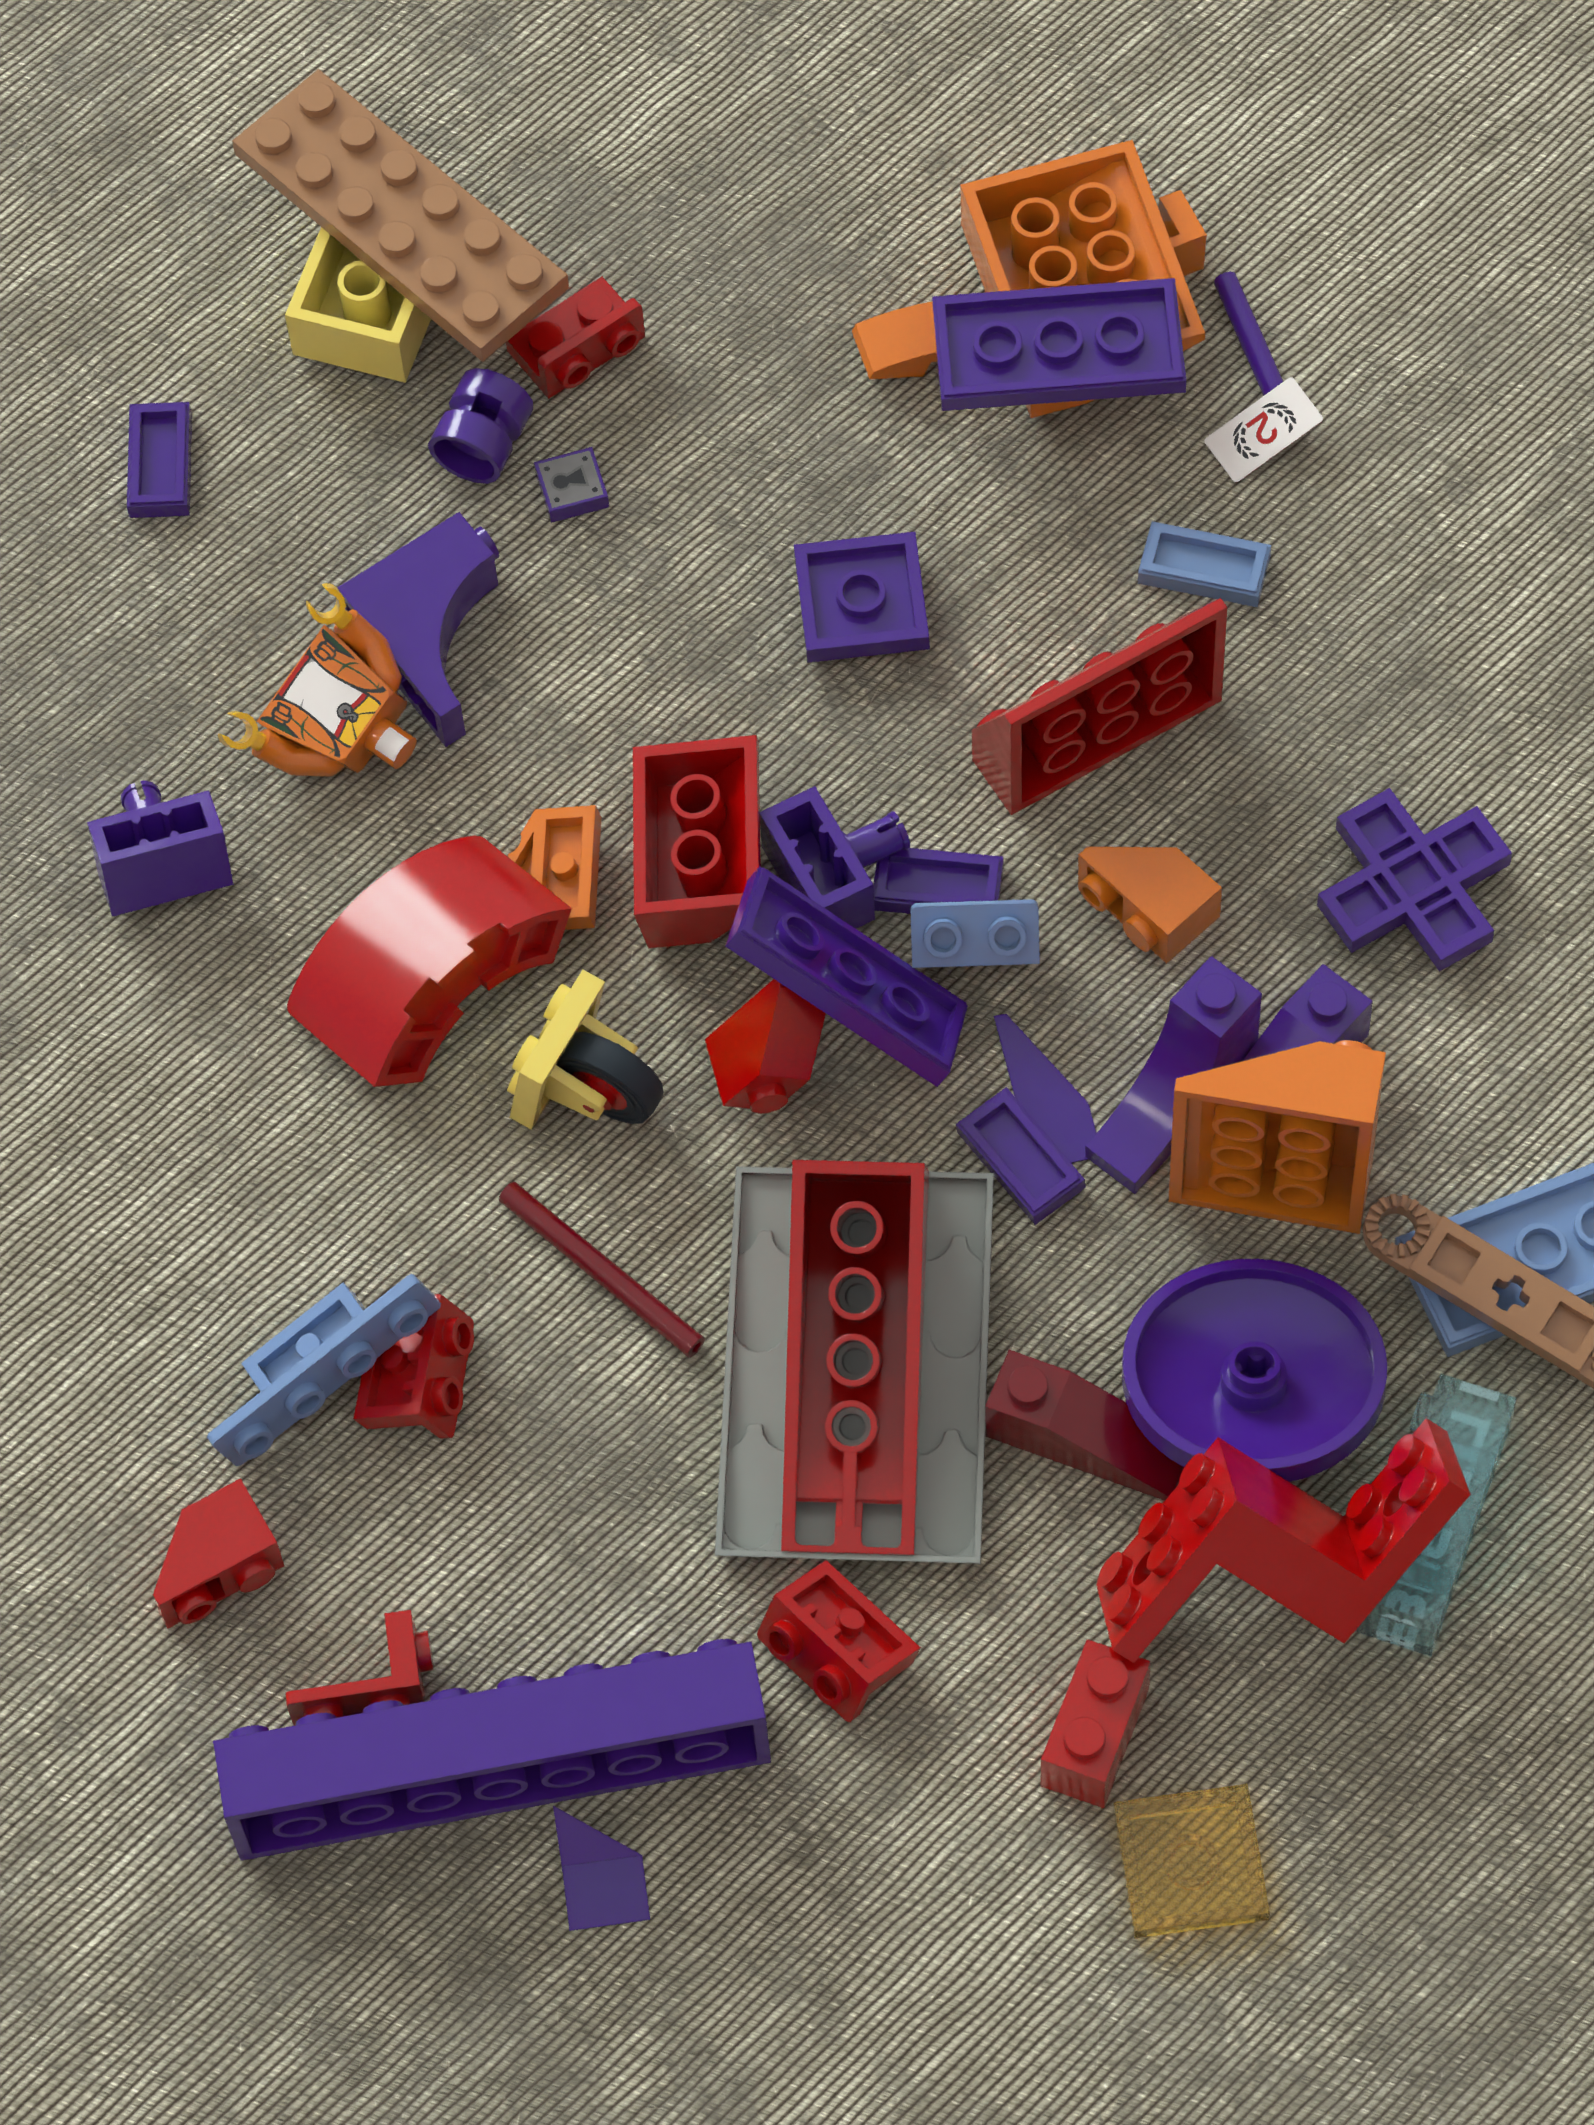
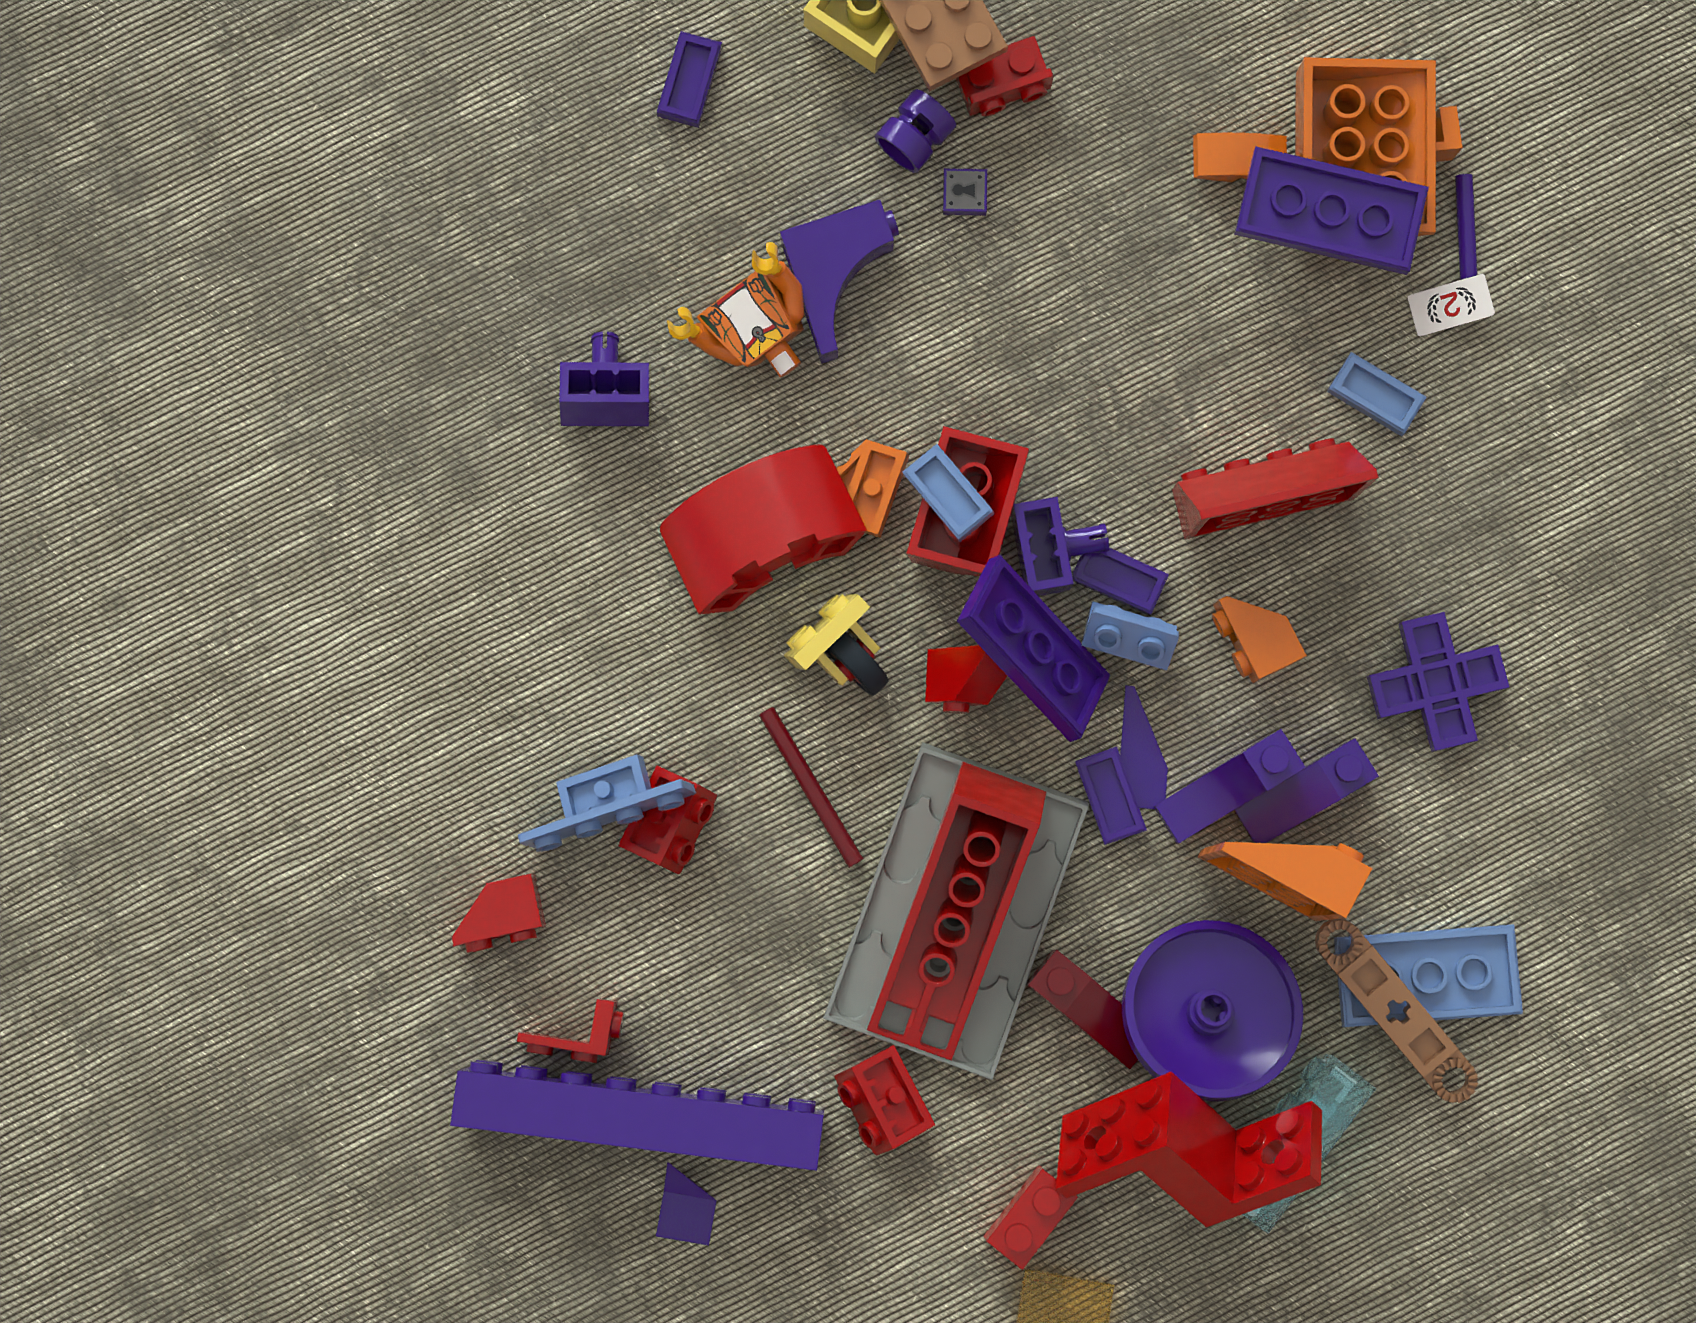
camera: 10 degrees right, 20 degrees up
(665, 819) = (948, 492): none -> medium blue tile
(861, 597) = (1135, 346): dark purple plate -> none

